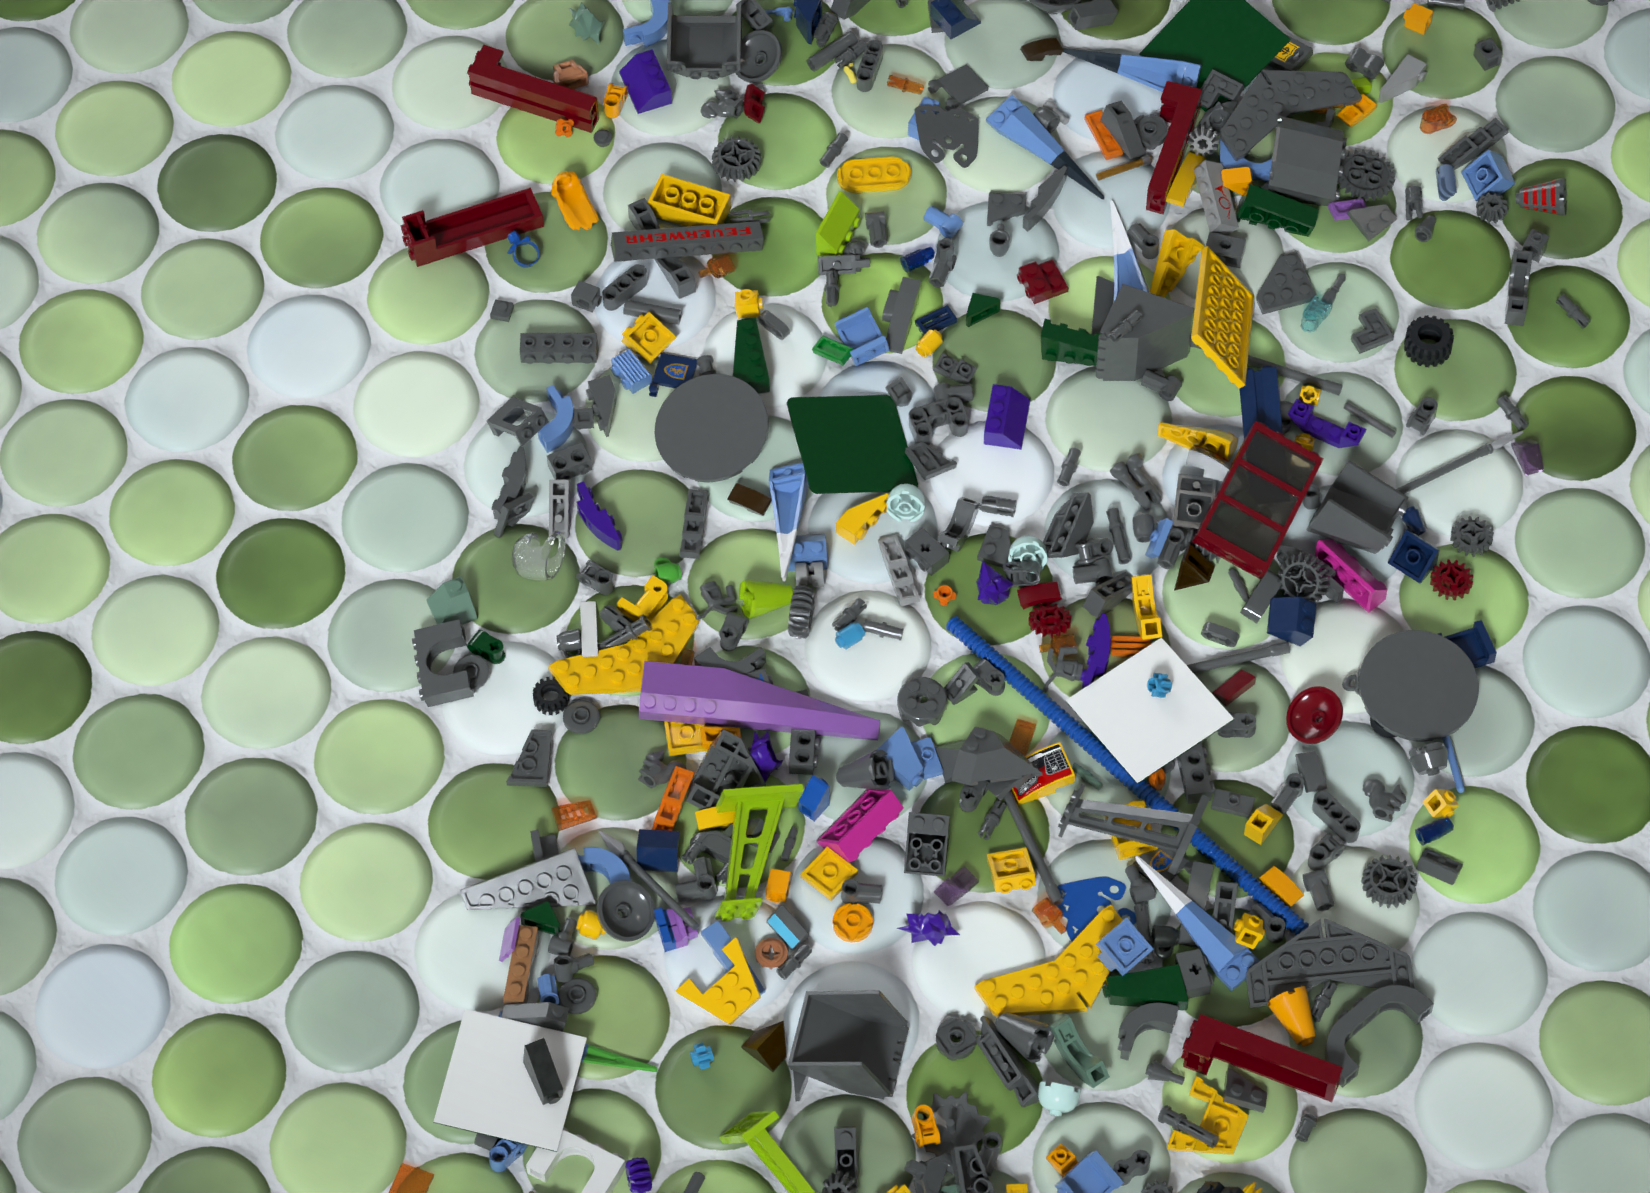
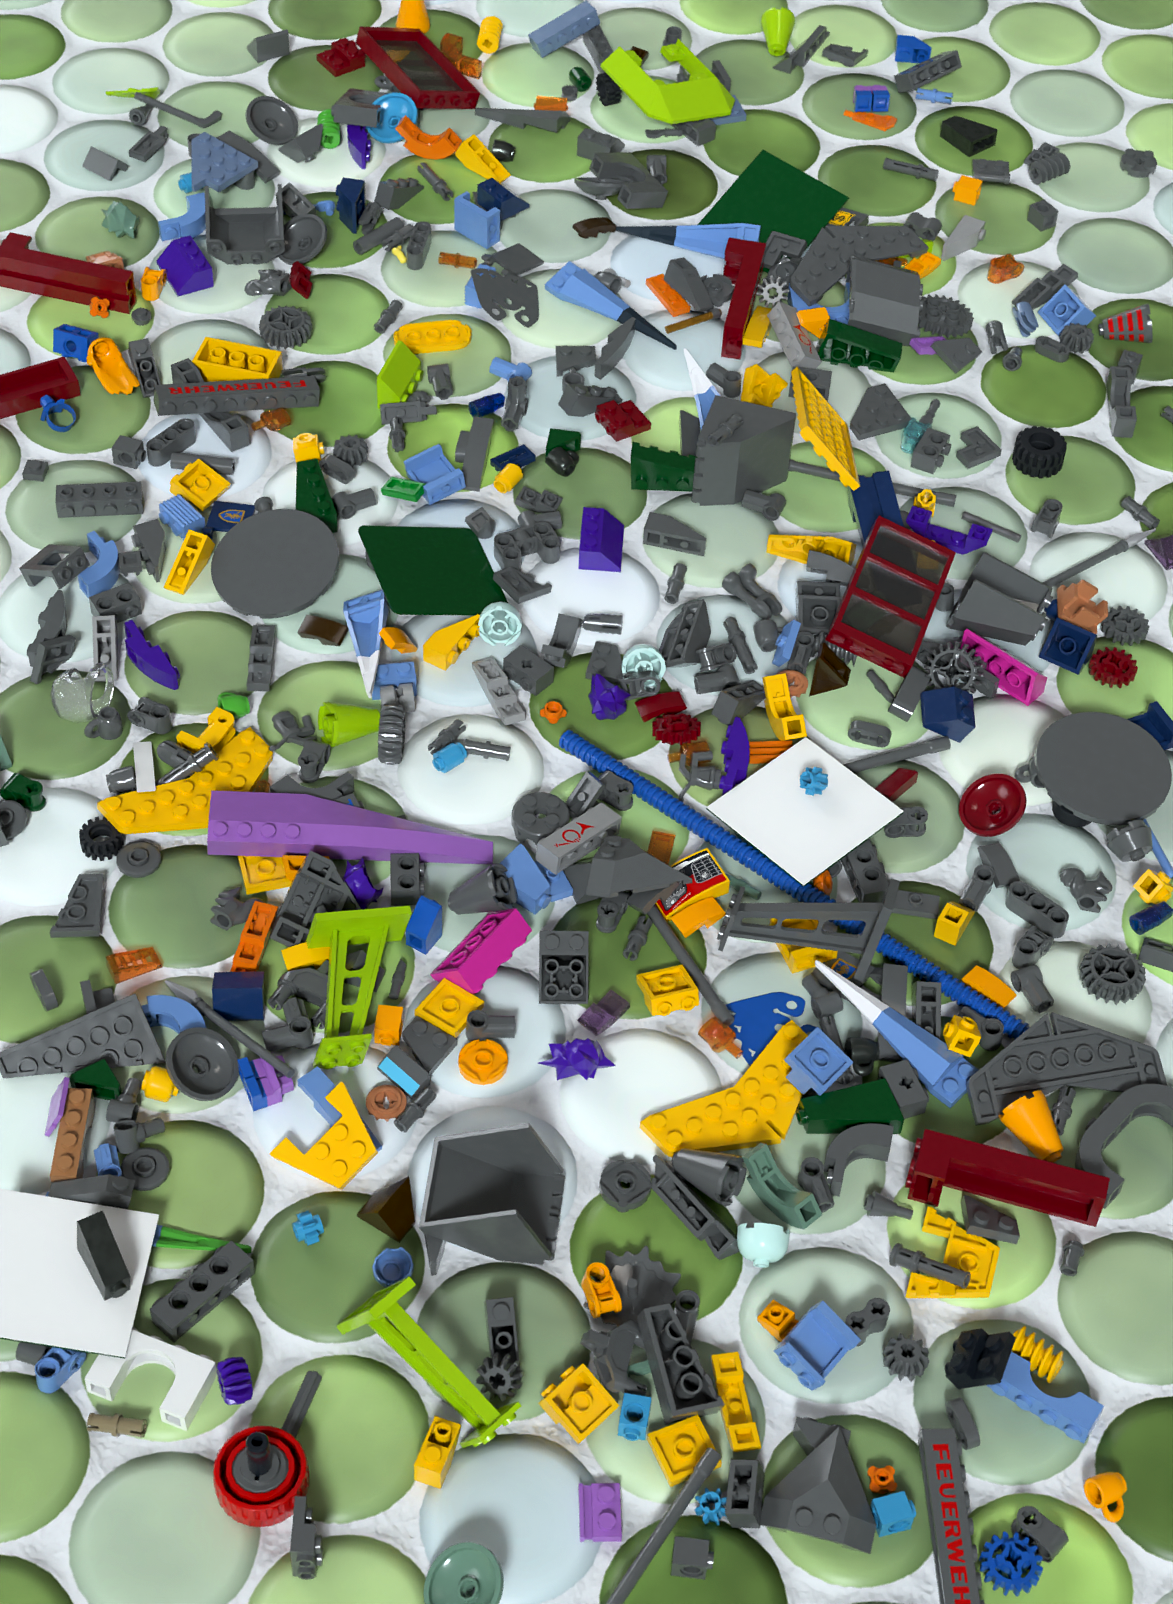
camera: 10 degrees left, 10 degrees down
(500, 834) = (43, 990): none -> dark grey beam
(540, 169) = (73, 341): none -> blue brick
(559, 585) = (107, 723): none -> dark grey piece
(604, 202) = (144, 366): none -> dark grey slope
(614, 1111) = (198, 1304): none -> dark grey brick
(635, 421) = (189, 562): none -> yellow slope
(765, 1094) = (392, 1266): none -> medium blue hair
(781, 364) = (347, 505): none -> dark grey piece
(787, 305) = (351, 450): none -> dark grey gear
(809, 903) = (428, 1043): none -> dark grey wing
(814, 515) = (397, 639): none -> light orange slope
(931, 49) = (475, 222): none -> medium blue panel
(951, 723) = (577, 838): none -> light grey brick
(980, 328) = (562, 461): none -> pearl dark grey piece
(1009, 258) = (582, 400): none -> dark grey slope
(1045, 802) = (698, 914): none -> light orange slope
(1069, 413) = (671, 534): none -> dark grey slope
(1108, 1052) = (815, 1183): none -> dark grey piece
(1167, 577) = (800, 682): none -> nougat gear
(1324, 332) = (931, 451): none -> dark grey brick
(1432, 517) = (1078, 609): none -> nougat panel
(1466, 218) = (1052, 349): none -> dark grey beam

